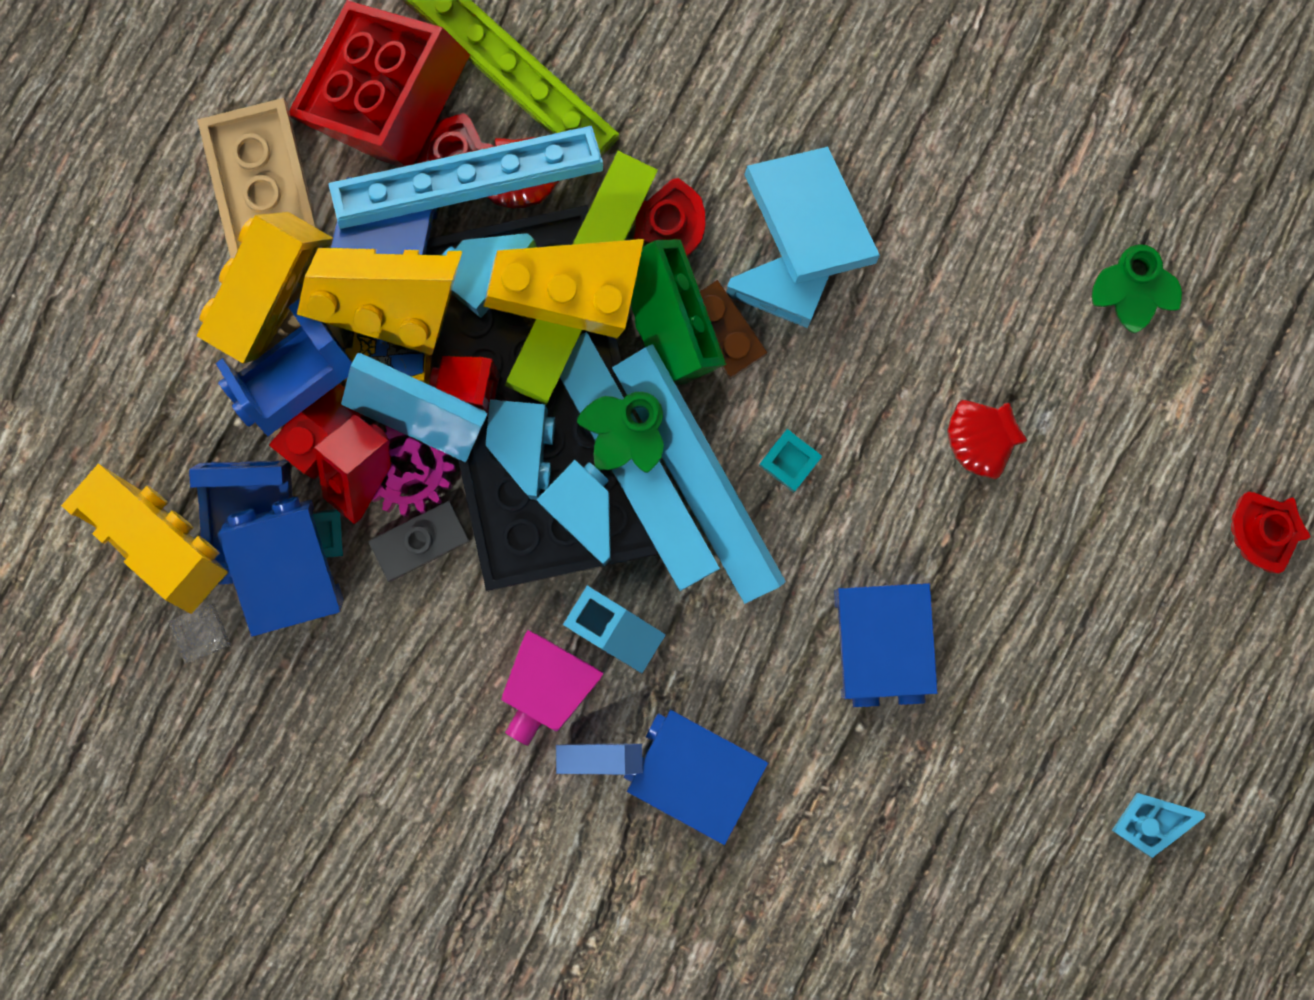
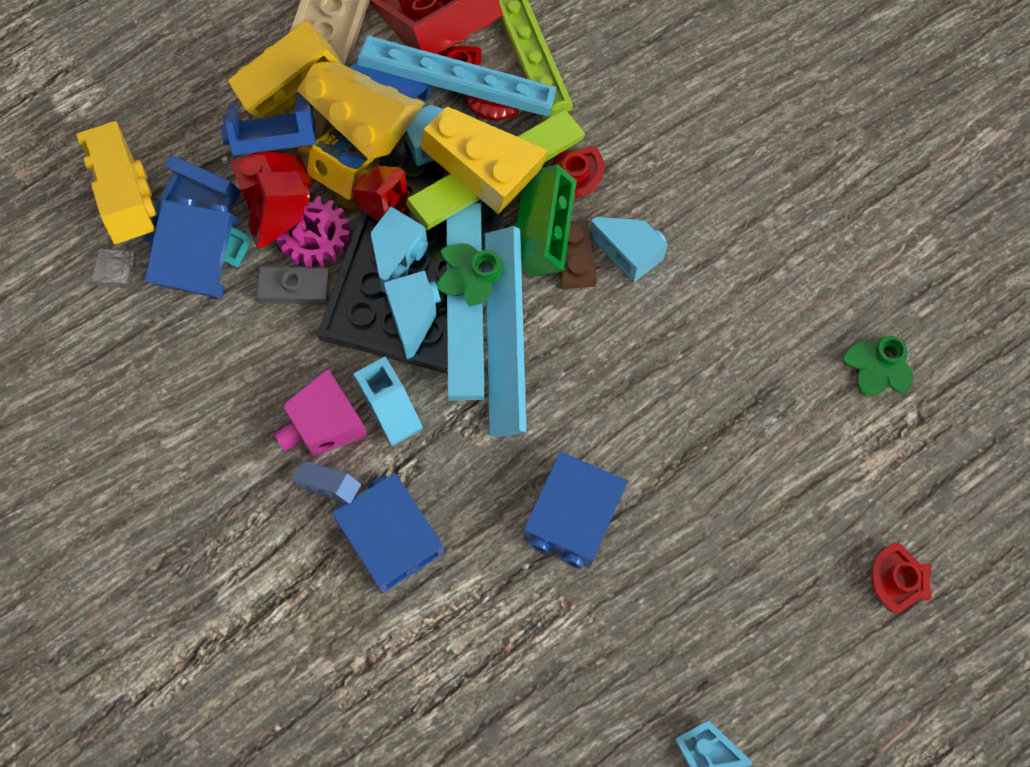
camera: 25 degrees right, 15 degrees down
(412, 407) = (336, 184): medium azure tile -> none
(790, 460) = (574, 356): teal plate -> none
(811, 215) = (673, 206): medium azure tile -> none
(983, 437) = (720, 409): red animal -> none

